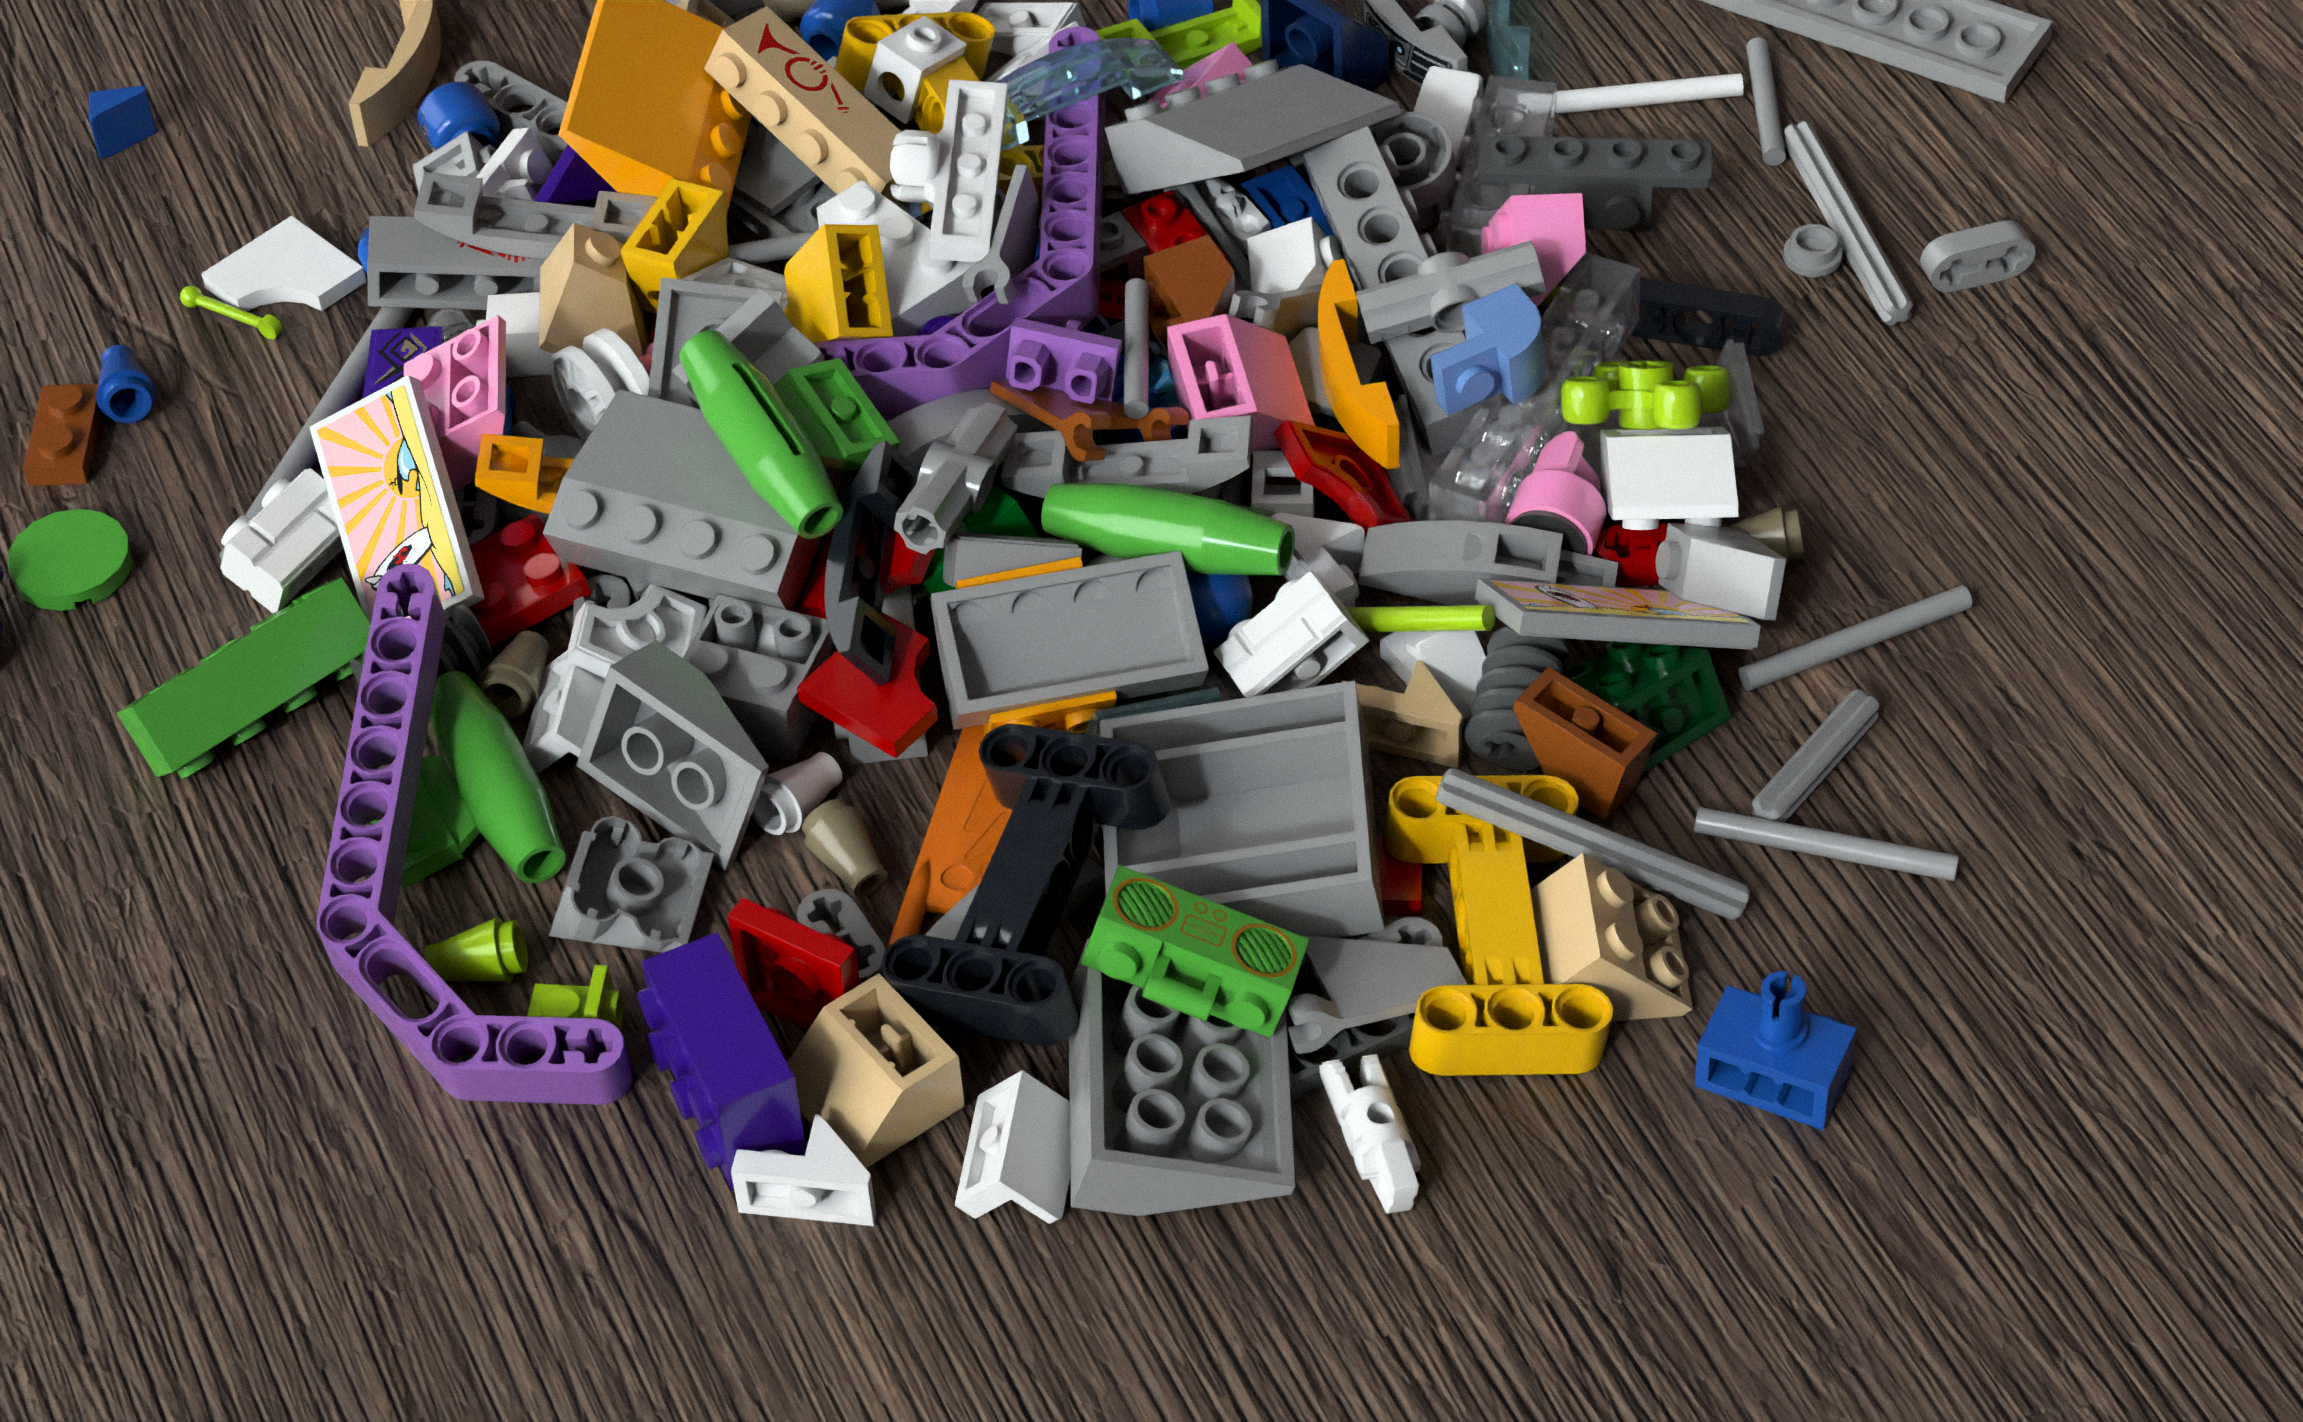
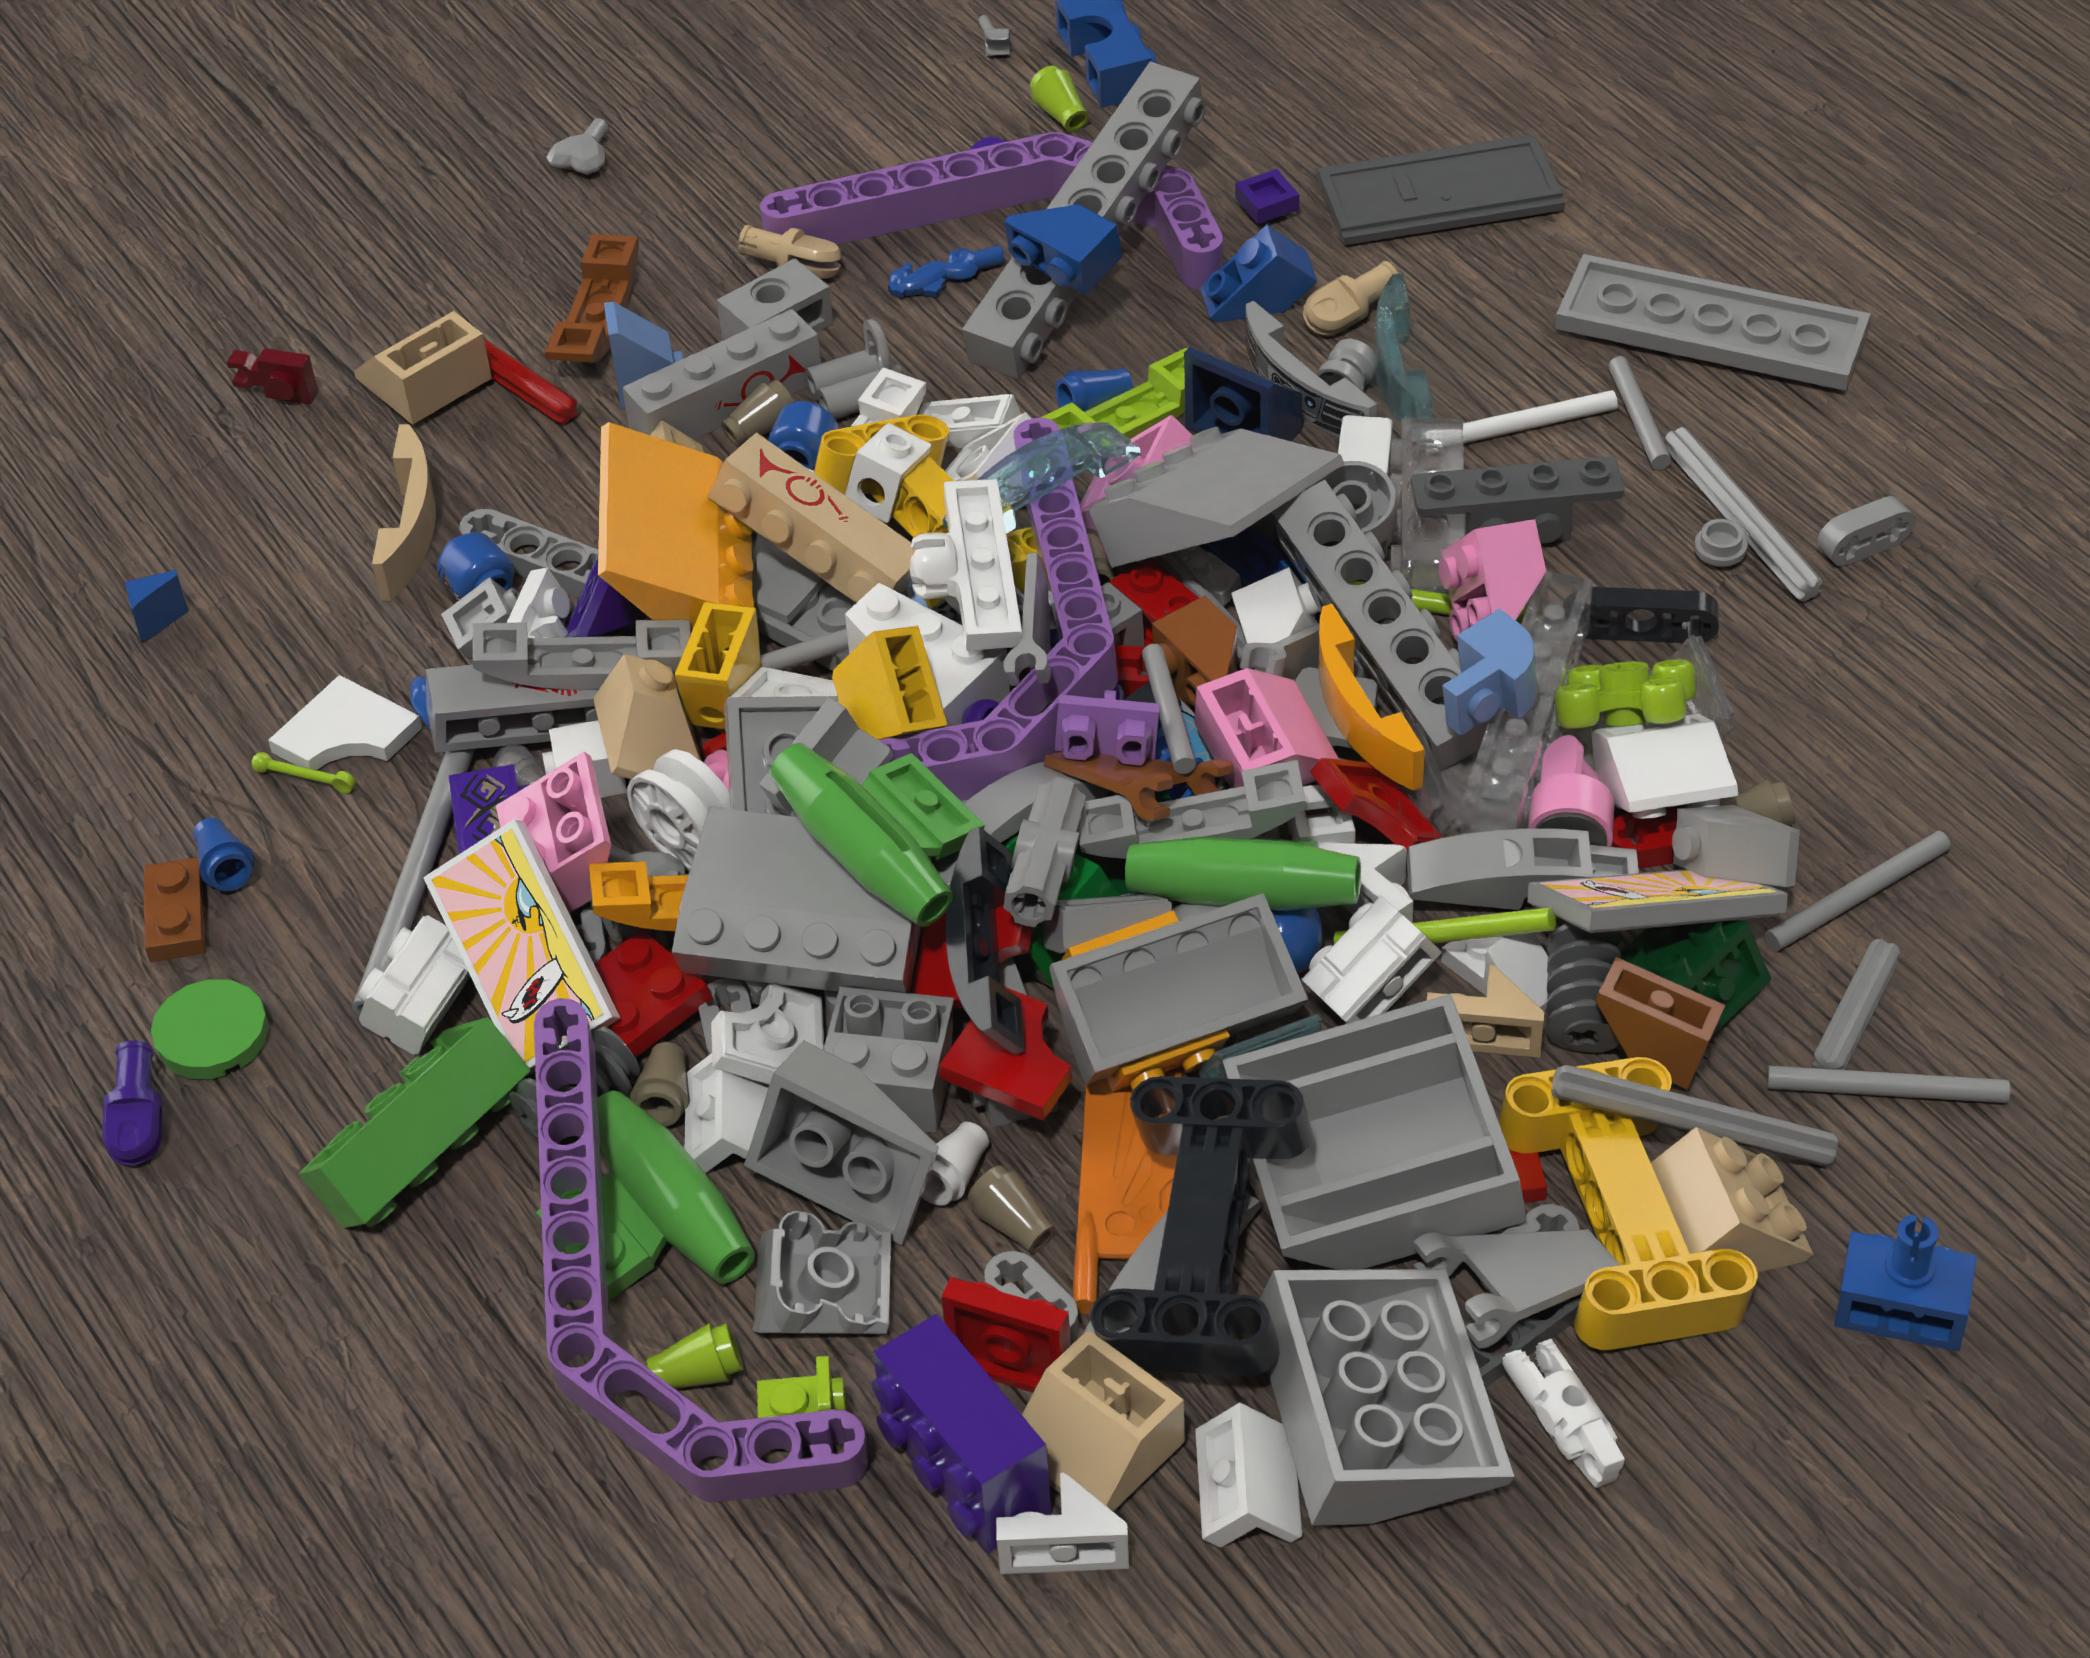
camera: 10 degrees left, 0 degrees up
(1194, 953) = (1375, 1270): bright green piece -> none
(1443, 287) = (1434, 621): light grey piece -> none

